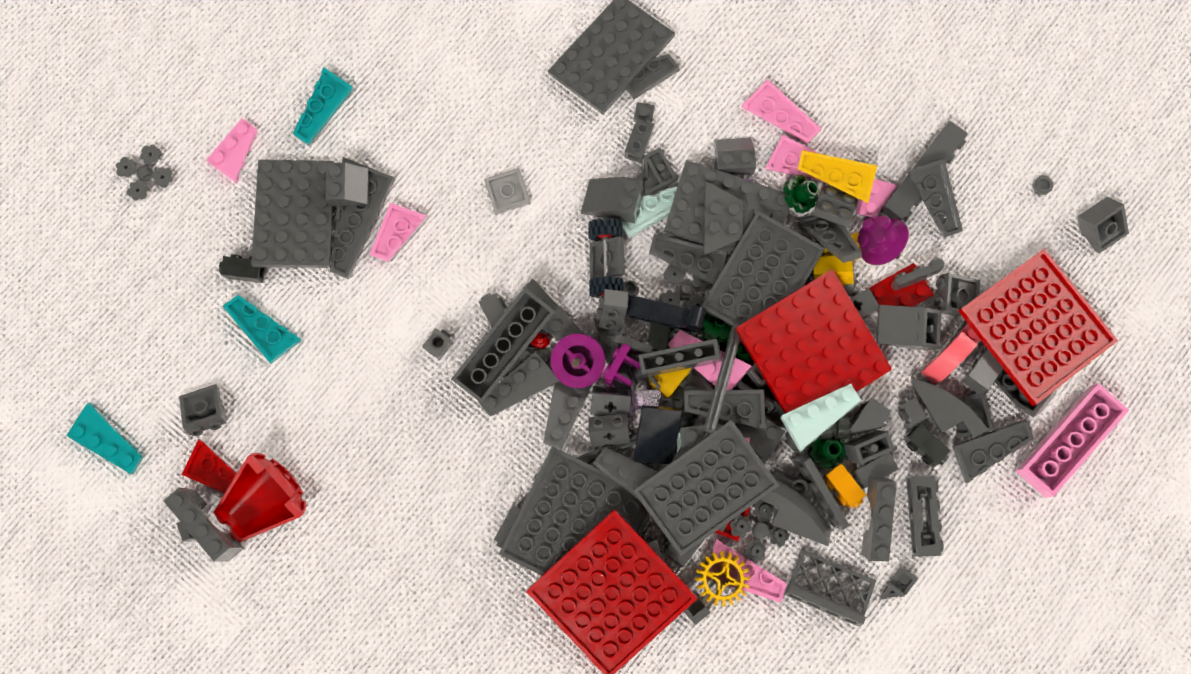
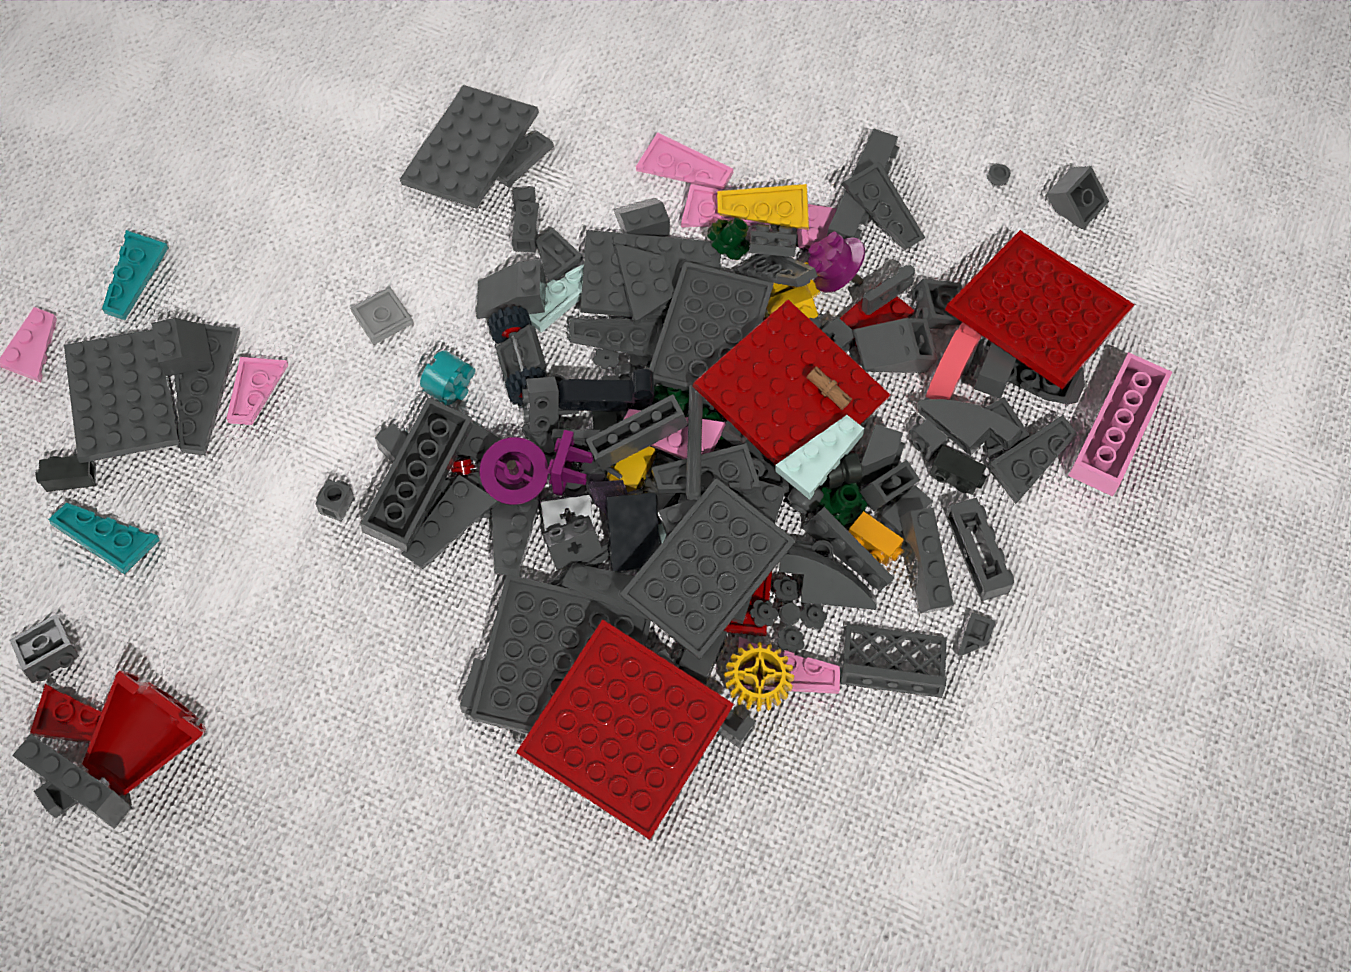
camera: 20 degrees left, 15 degrees down
(545, 264) = (447, 378): none -> teal brick
(843, 357) = (829, 388): none -> medium nougat pin

